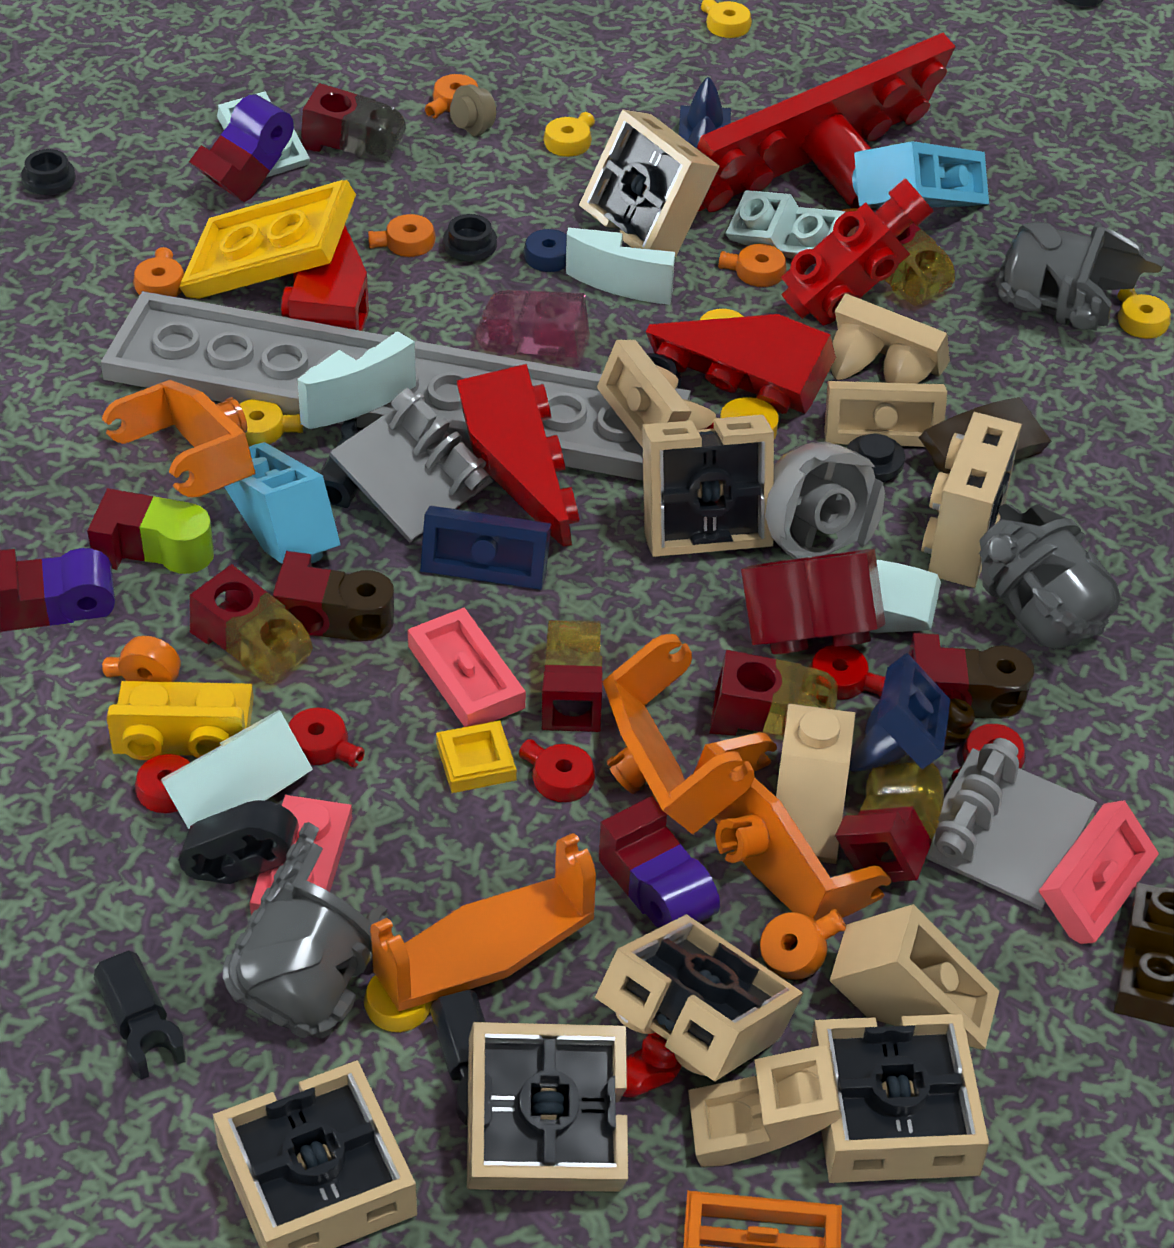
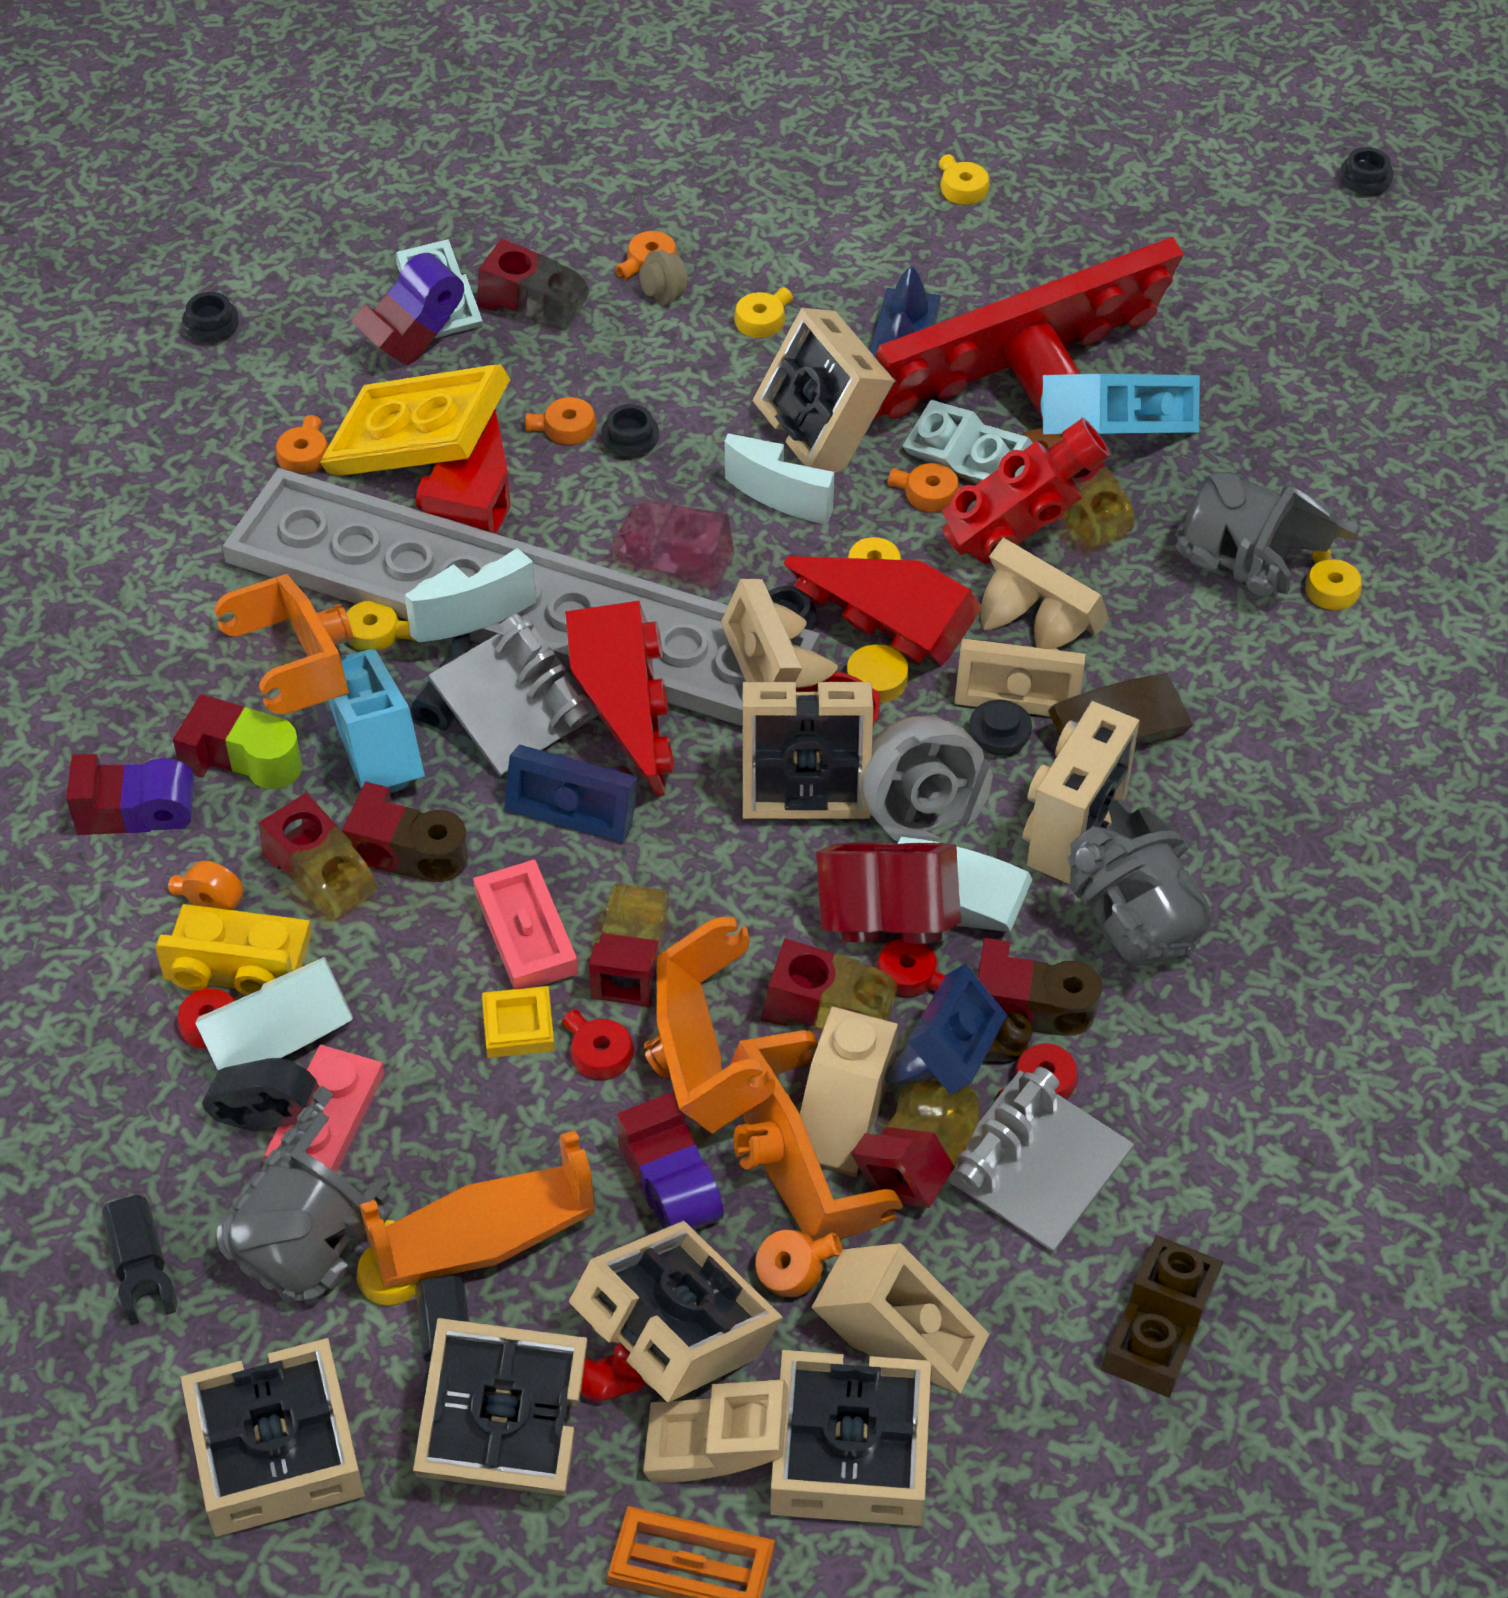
camera: 10 degrees right, 5 degrees up
(324, 737) = (374, 994): red piece -> none
(546, 250) = (706, 450): dark blue piece -> none
(1099, 872) = (1118, 1220): coral plate -> none

